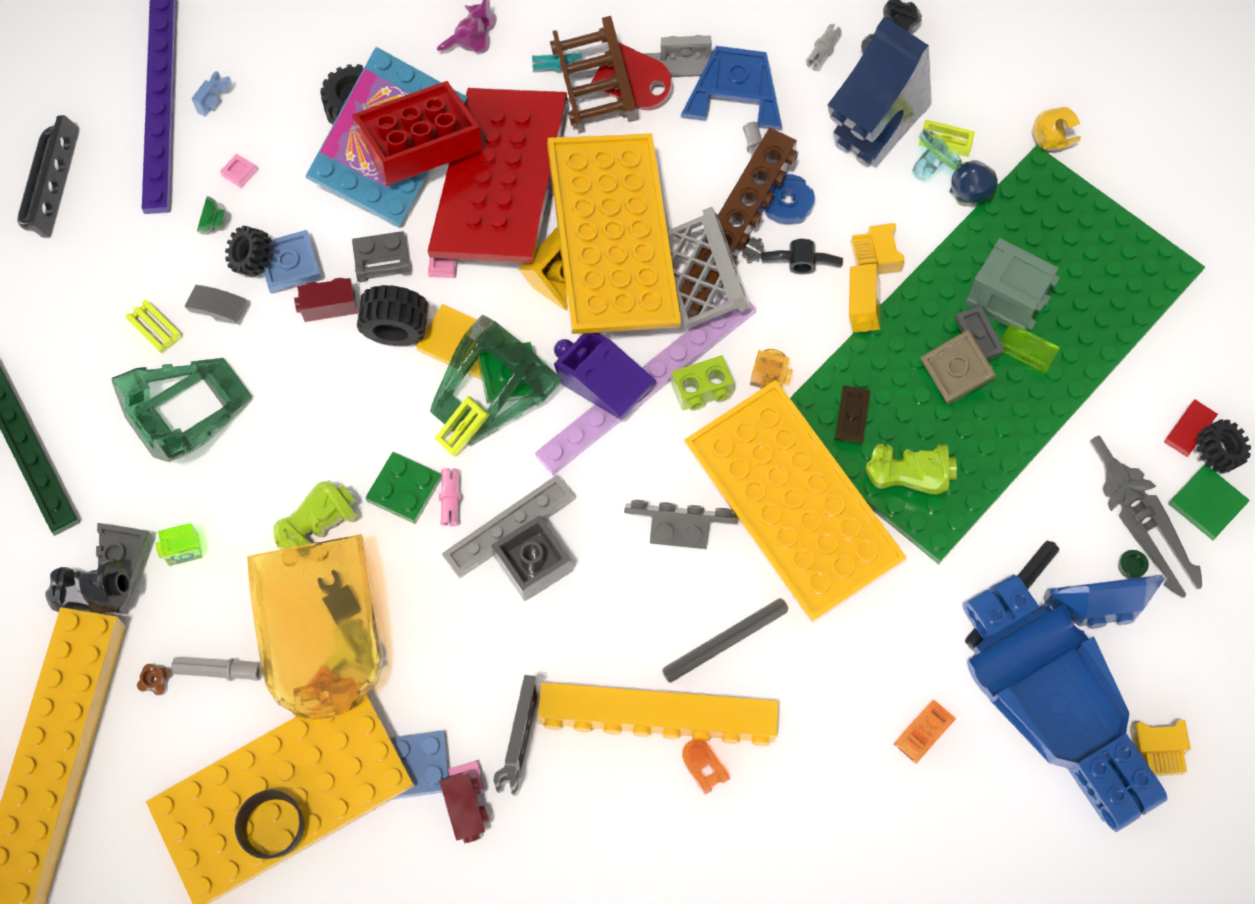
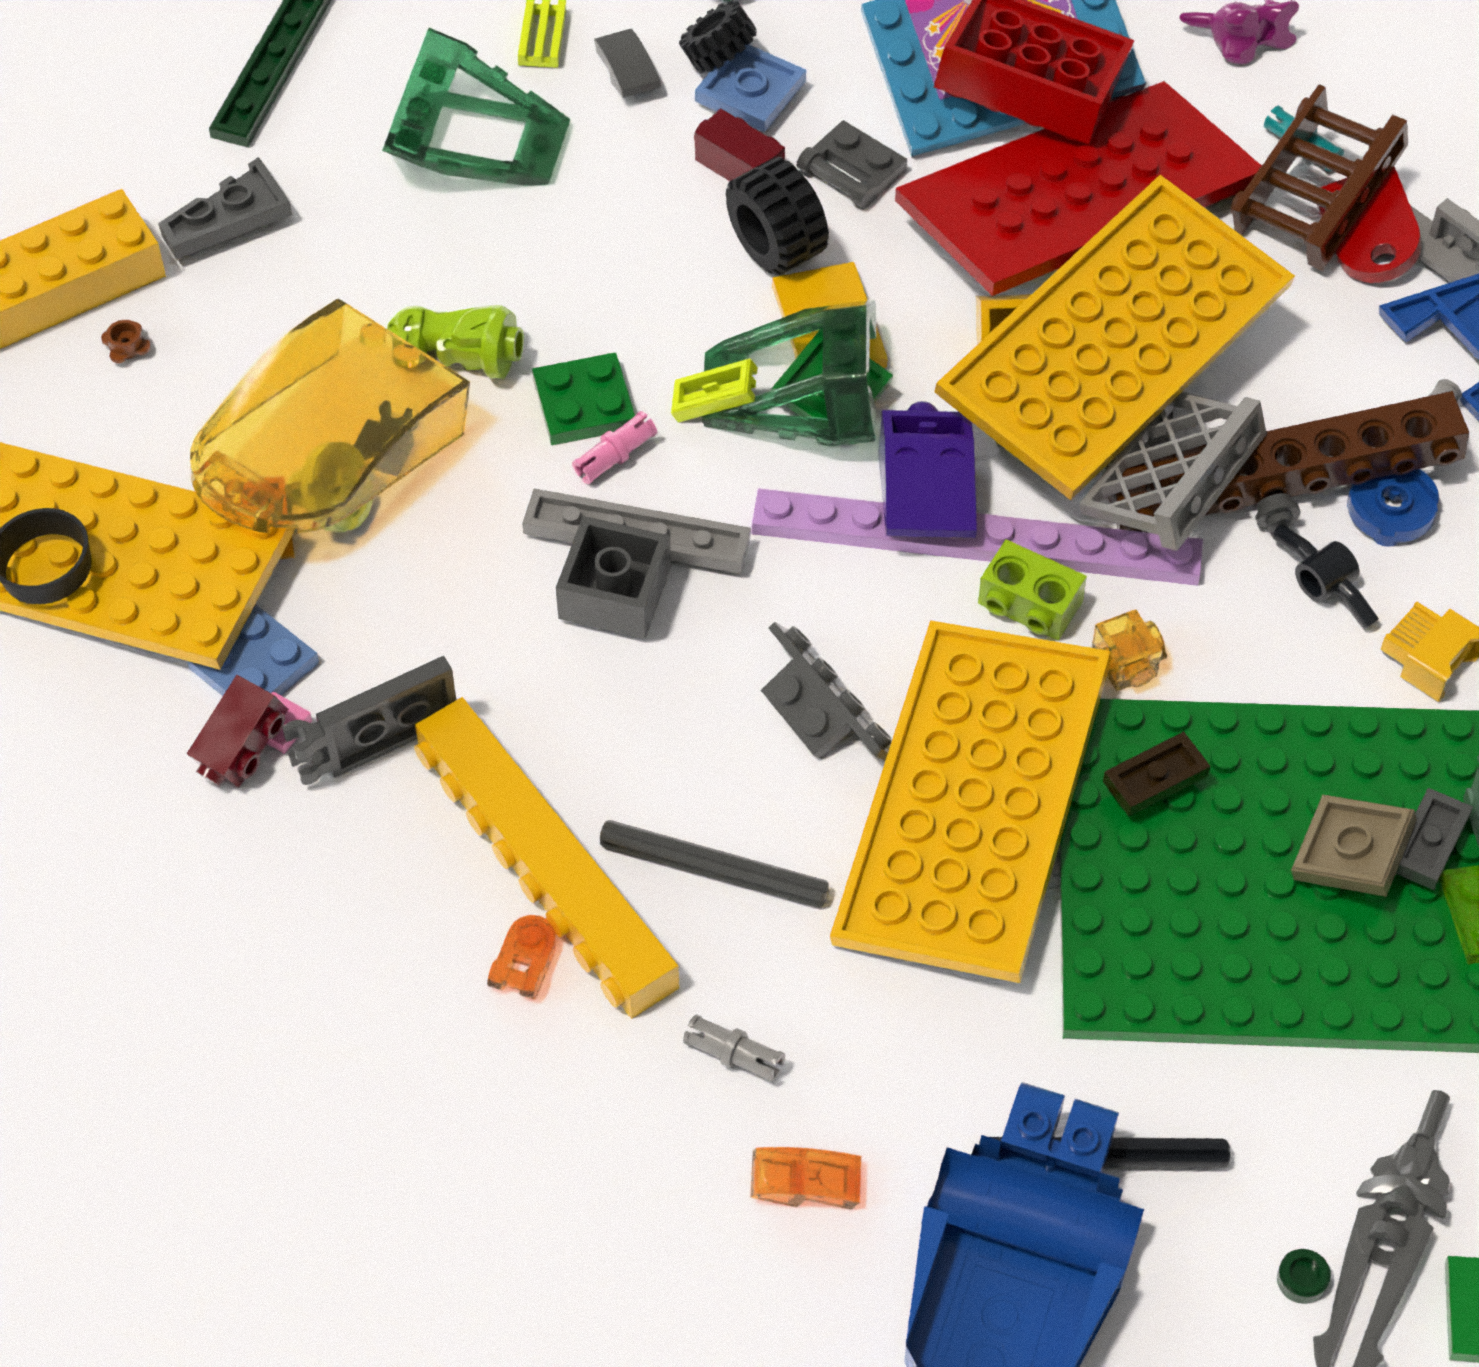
camera: 50 degrees right, 10 degrees down
(95, 590) = (173, 204): black animal -> none
(179, 544) = (304, 244): clear neon green brick -> none
(216, 668) = (199, 397): light grey axle -> none
(442, 267) = (903, 231): bright pink tile -> none
(833, 709) = (734, 1048): none -> light grey pin
(864, 298) = (1340, 674): yellow brick -> none
(919, 470) = (1153, 899): lime animal -> none
(1105, 601) = (1213, 1274): blue wedge -> none

